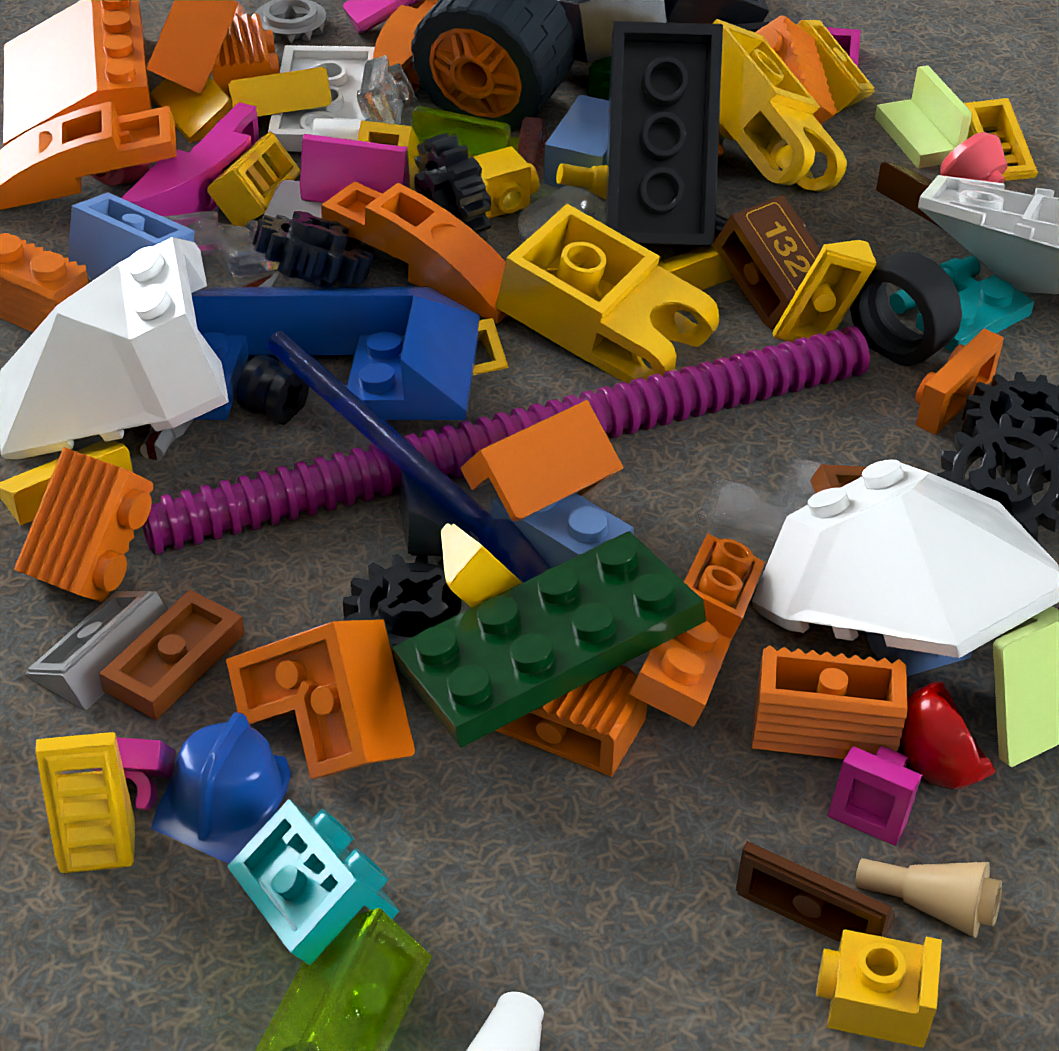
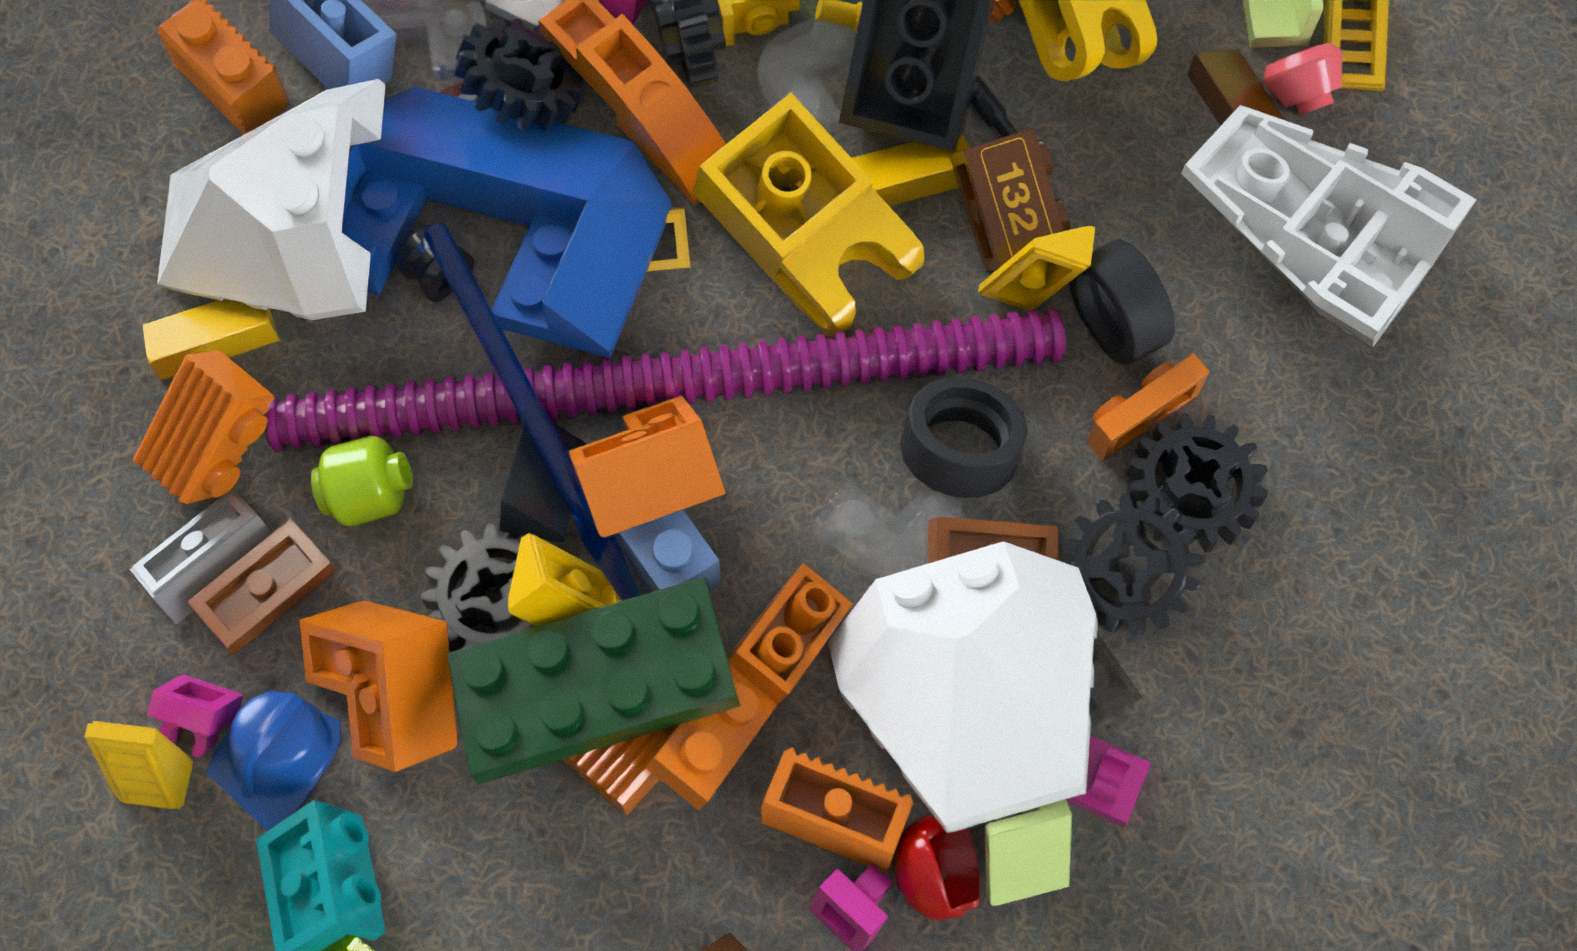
camera: 15 degrees right, 25 degrees up
(253, 551) = (361, 481): none -> lime head
(812, 422) = (952, 470): none -> black tyre
(984, 304) = (1218, 296): teal plate -> none

